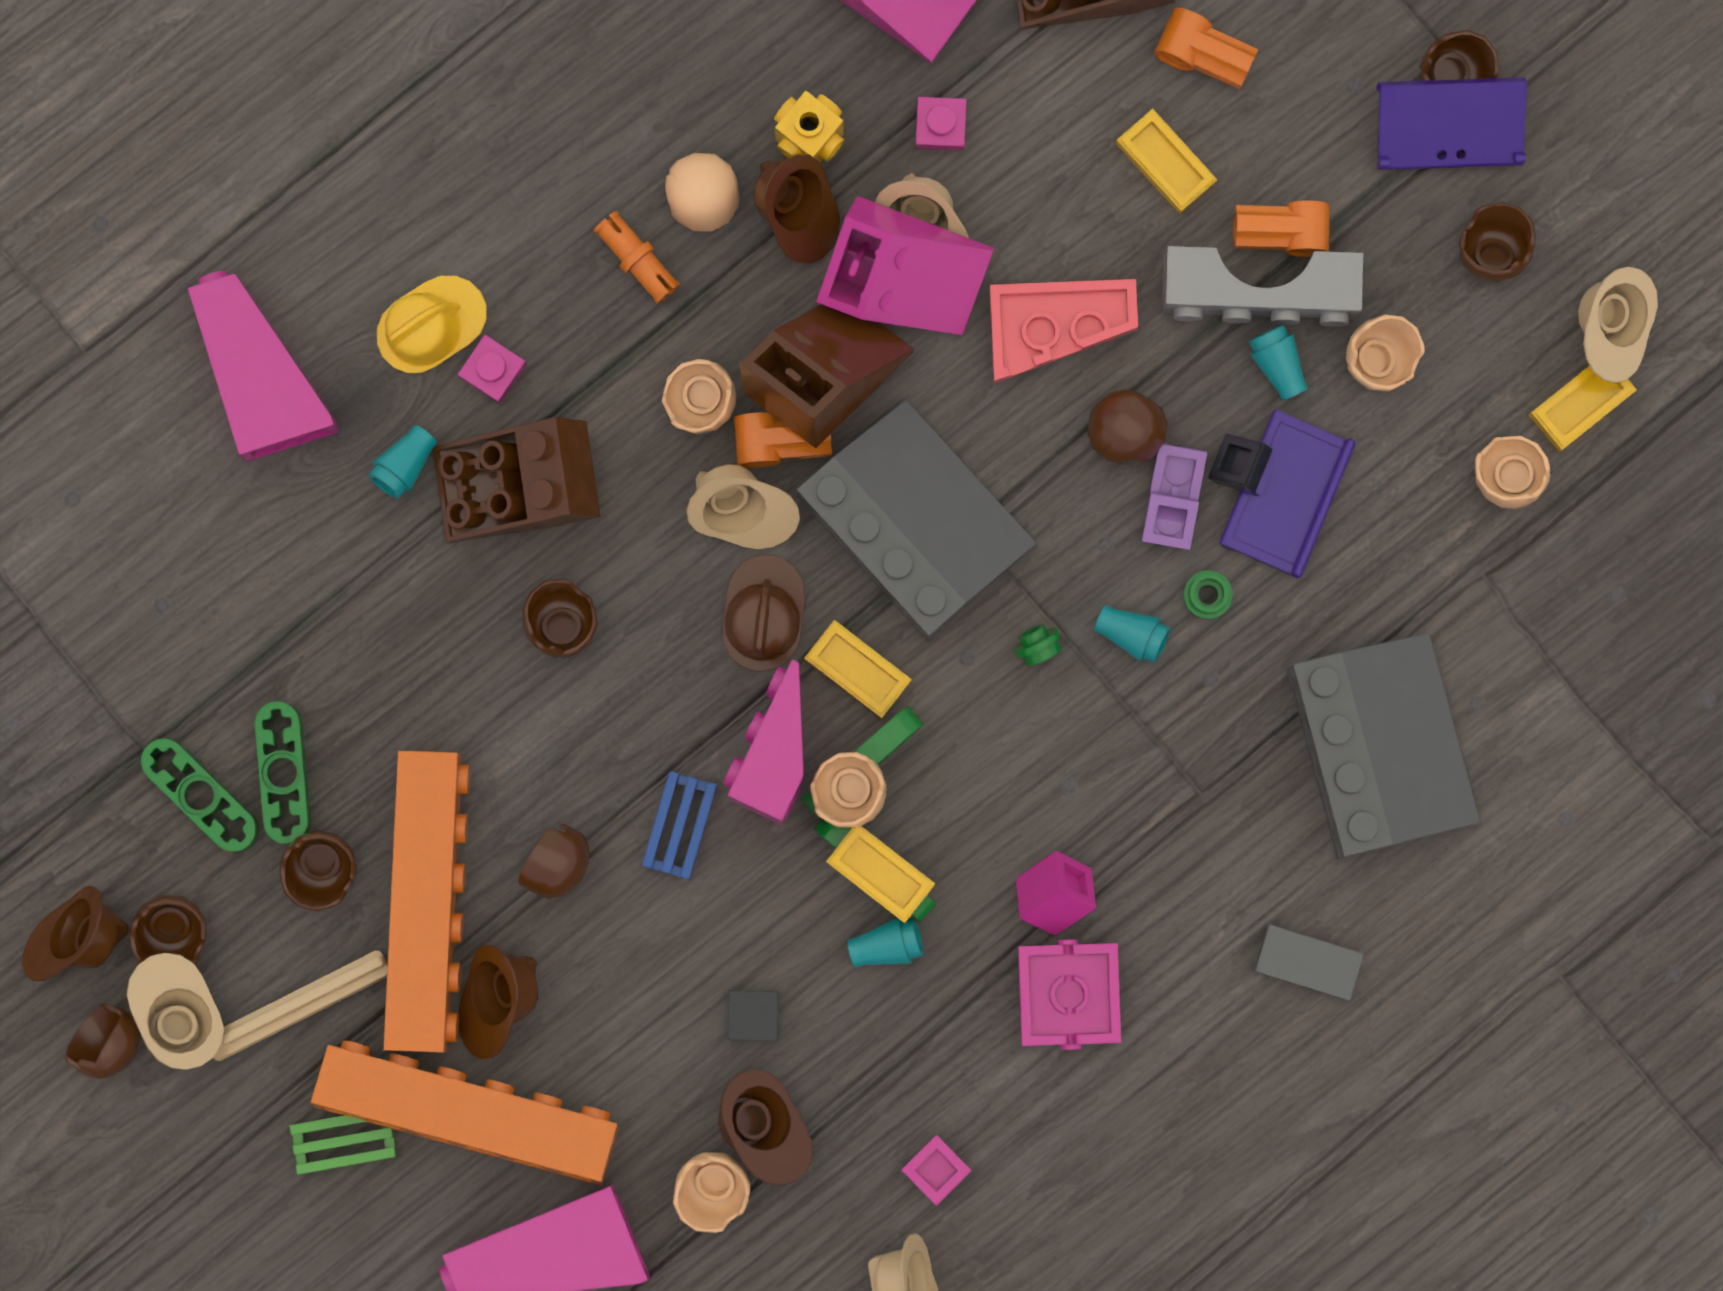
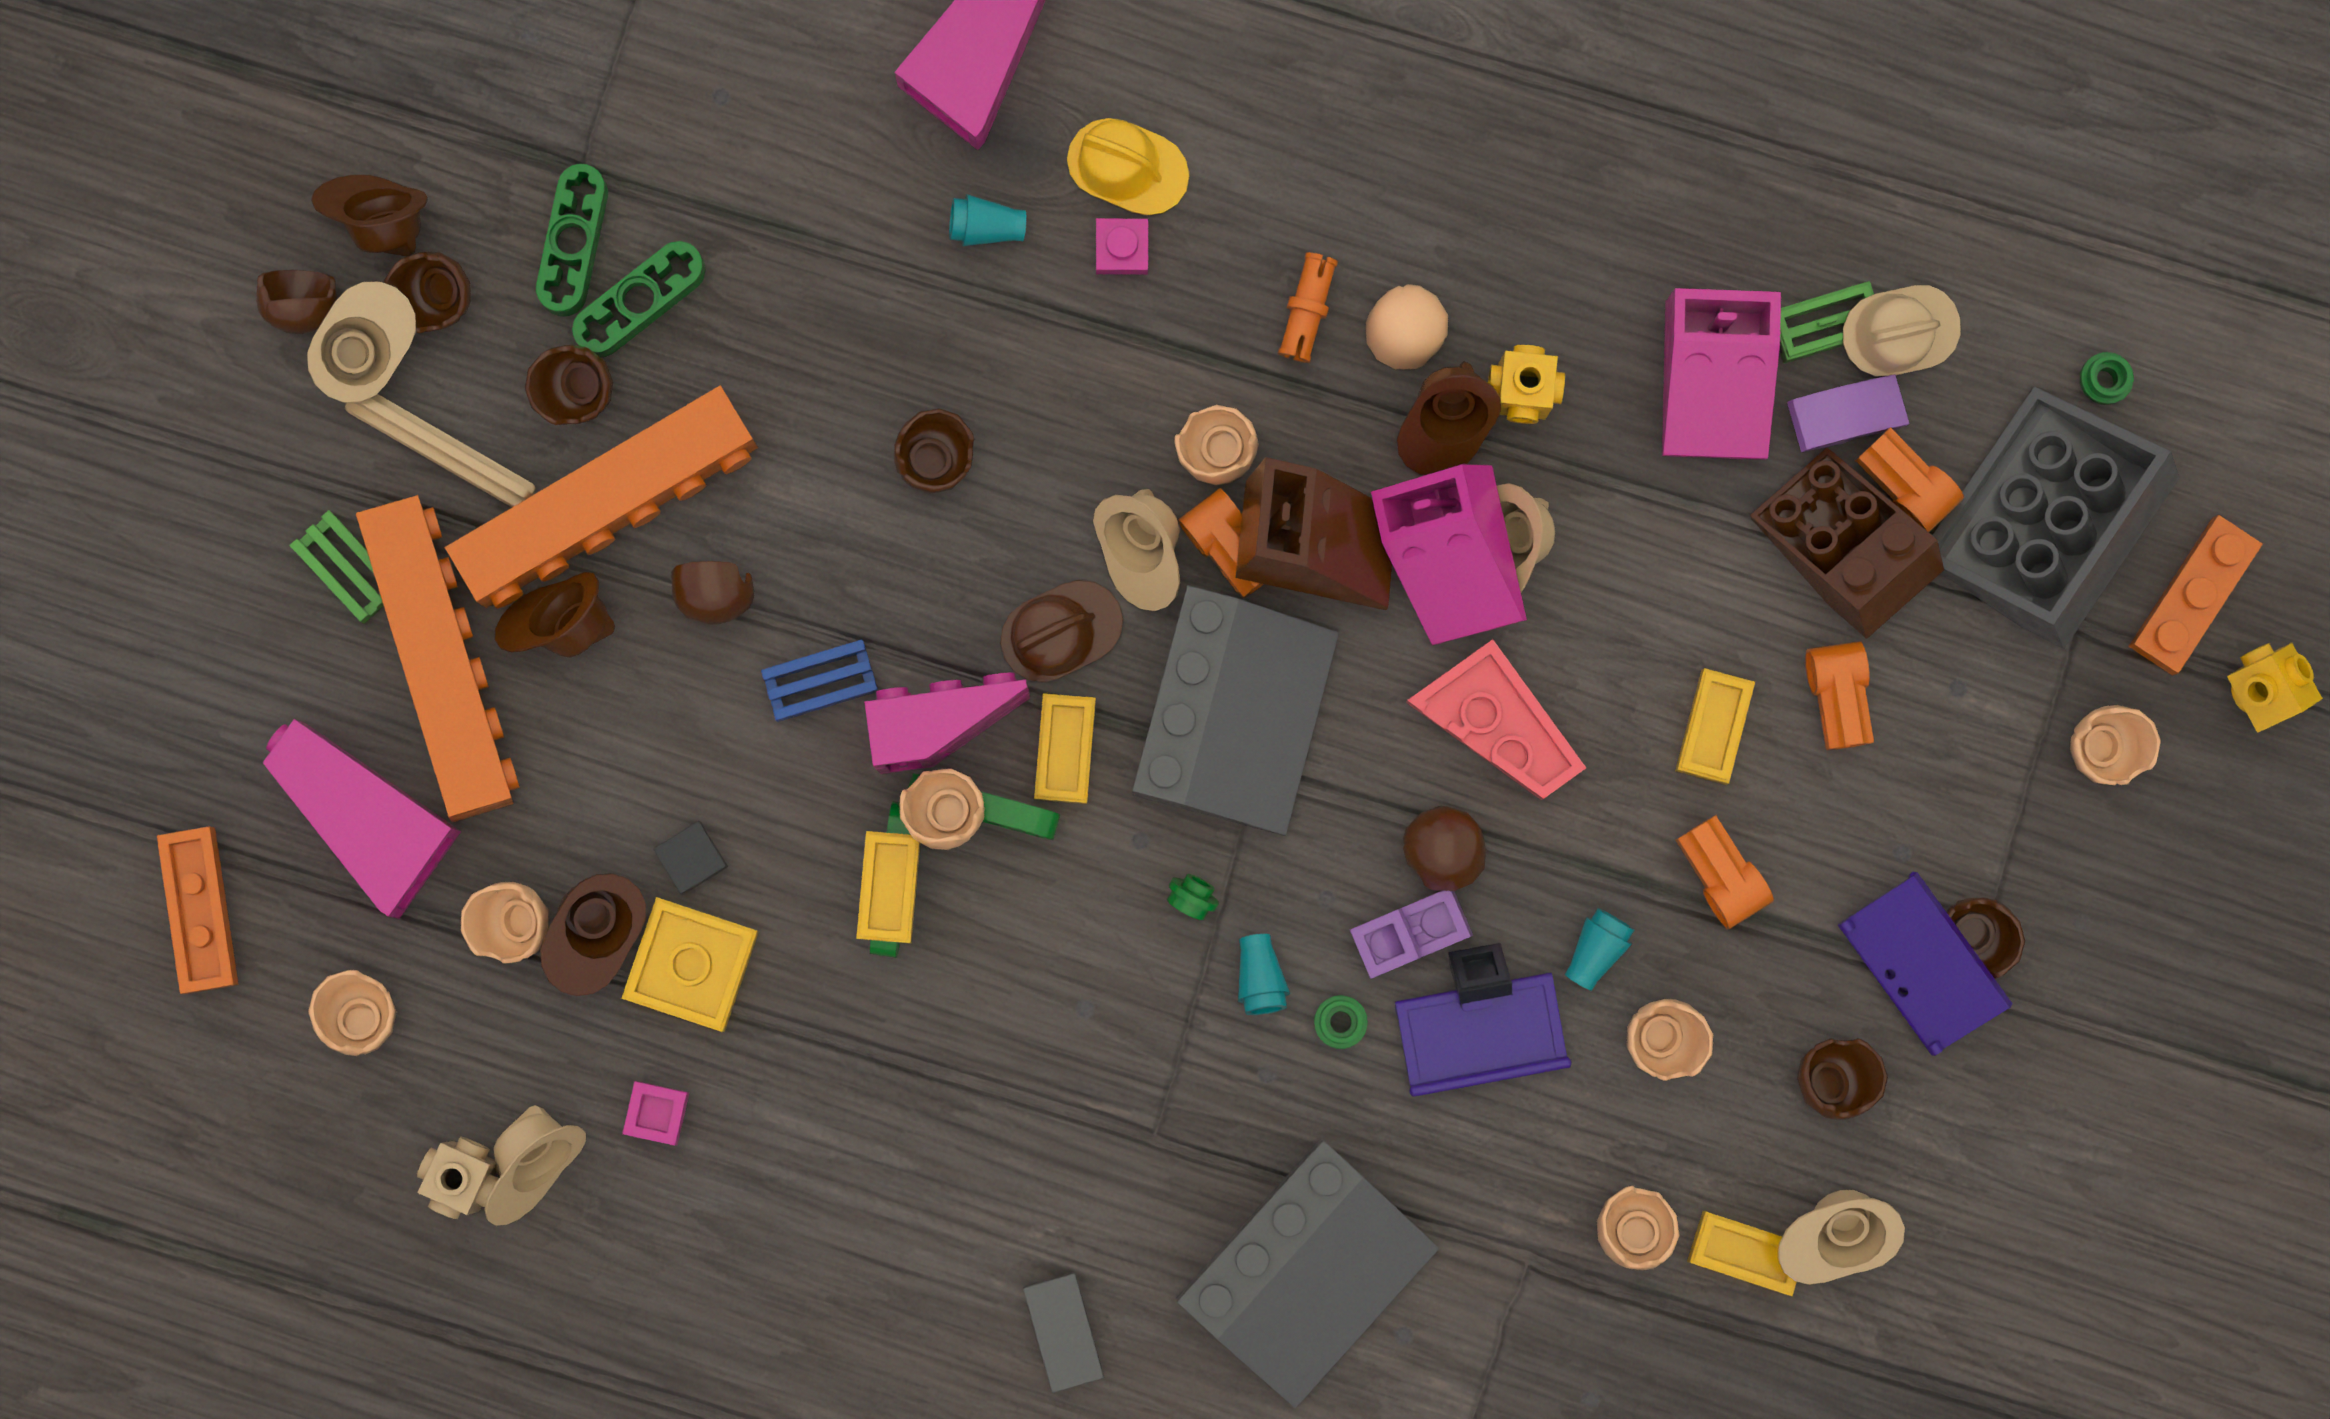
camera: 55 degrees right, 0 degrees up
(516, 480) = (1036, 333): reddish brown slope -> none
(836, 1069) = (690, 964): none -> yellow tile
(887, 944) = (831, 937): teal cone -> none
(940, 123) = (1612, 500): dark pink plate -> none
(1055, 893) = (976, 1059): dark pink panel -> none
(1069, 994) = (892, 1131): dark pink plate -> none
(1201, 284) = (1692, 946): light grey arch -> none

